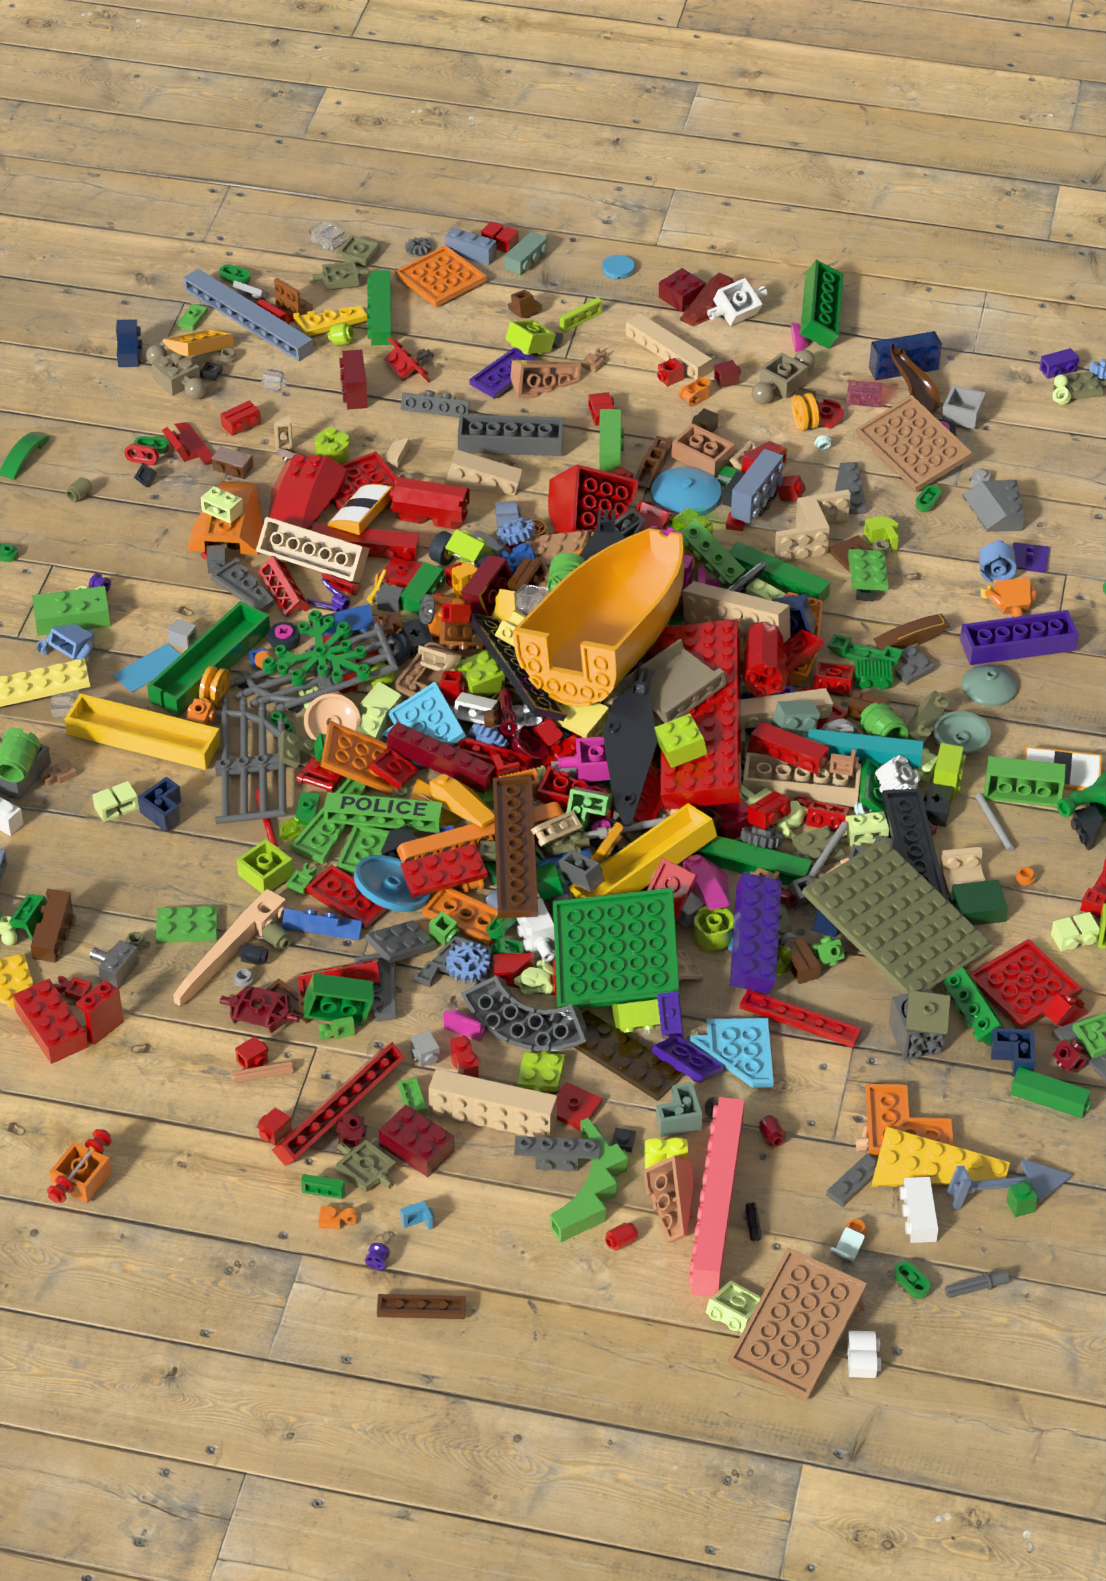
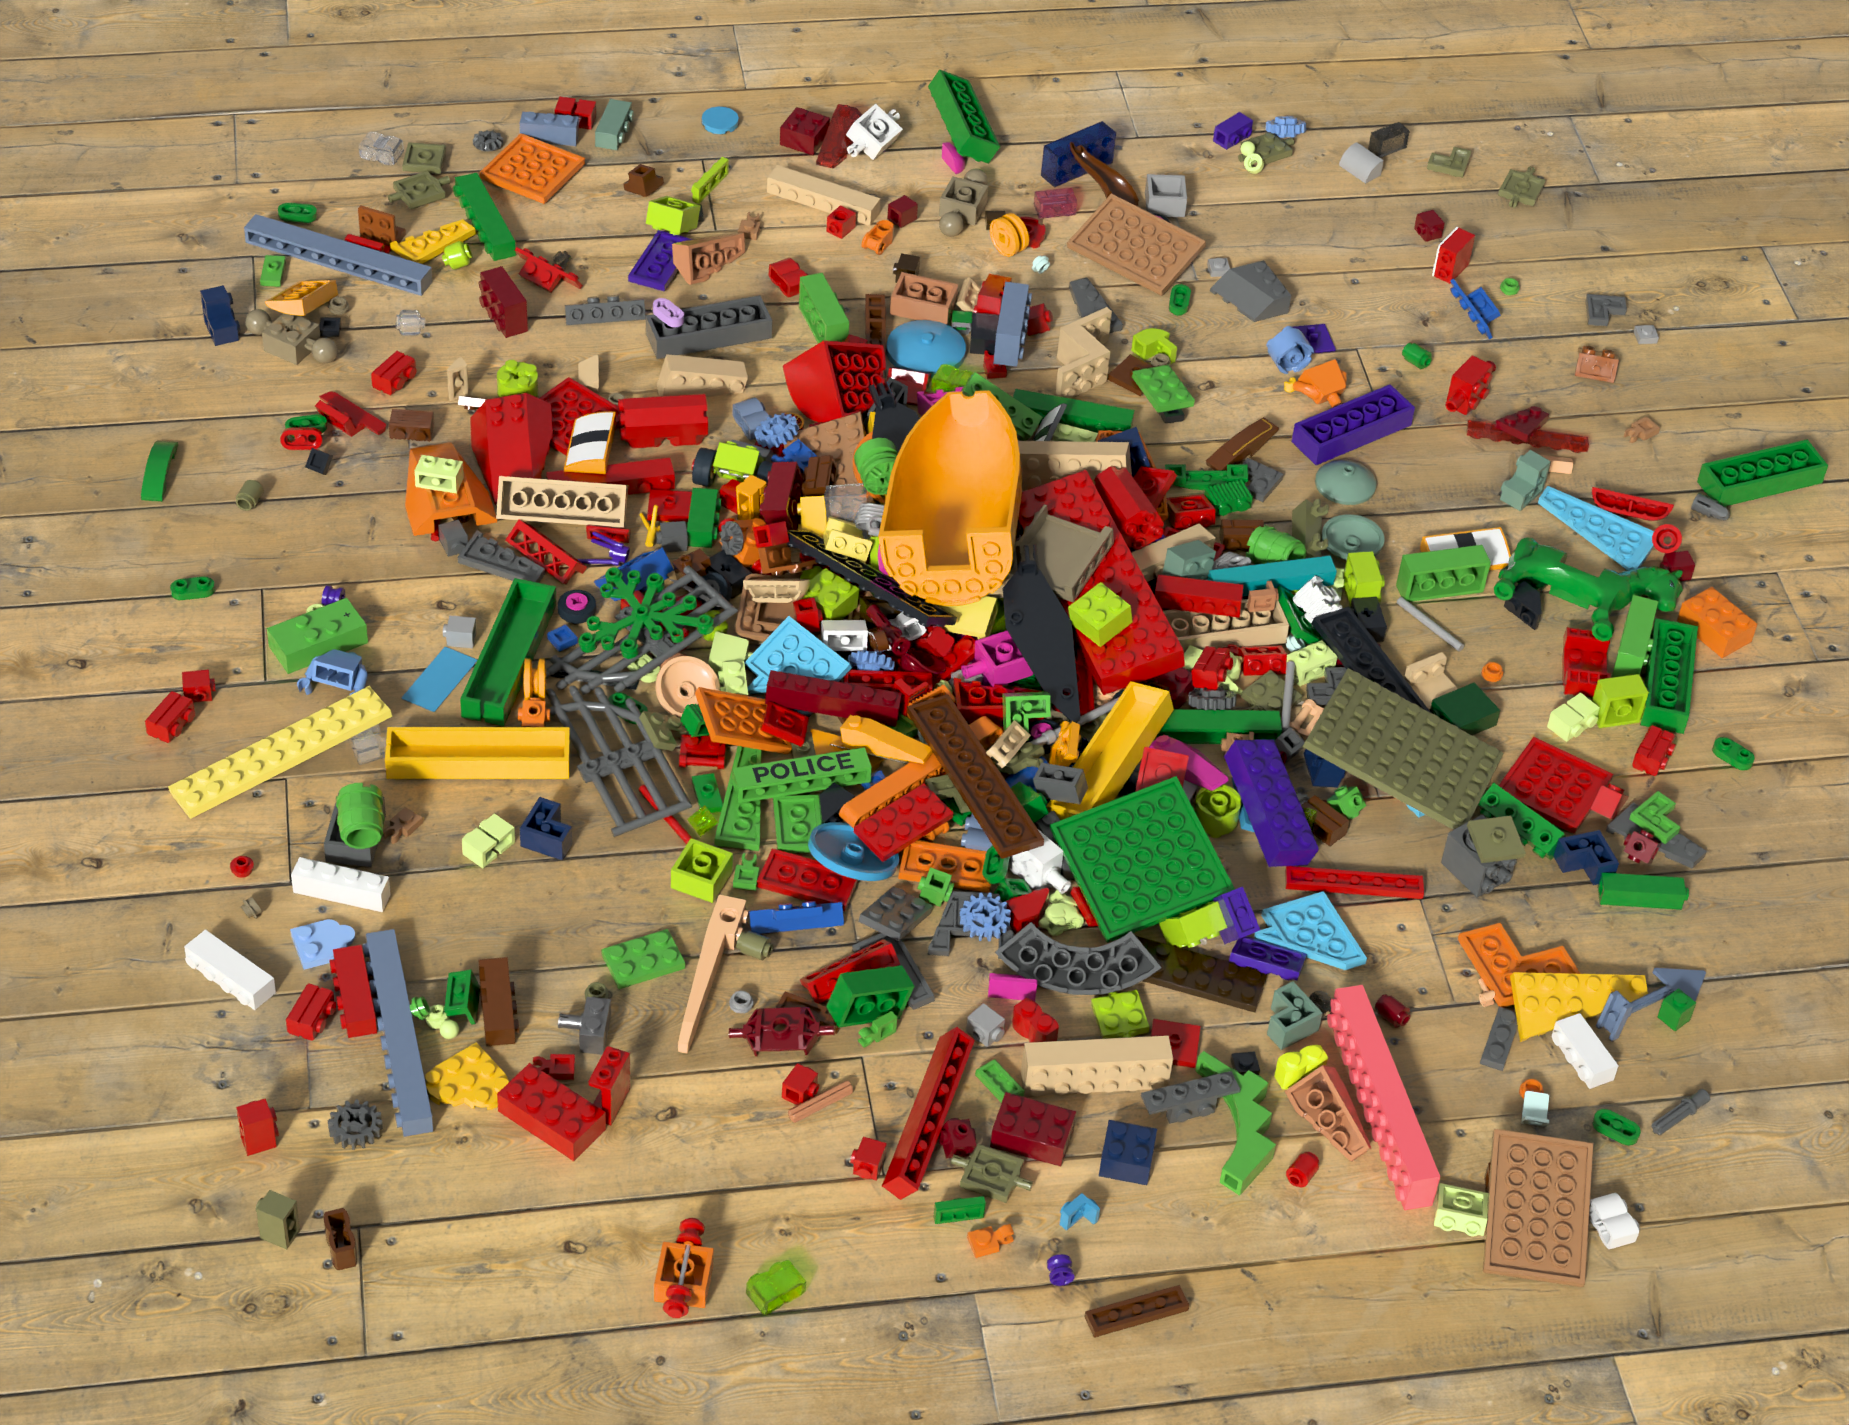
camera: 25 degrees left, 0 degrees up
(147, 1203) = (775, 1287): none -> clear neon green brick
(253, 954) = (739, 972): black brick -> none
(256, 293) = (318, 226): plate -> none
(260, 656) = (570, 638): orange plate -> none
(475, 412) = (668, 312): none -> lavender beam
(483, 1180) = (1127, 1152): none -> dark blue brick
(753, 1221) = (1425, 1113): black axle -> none

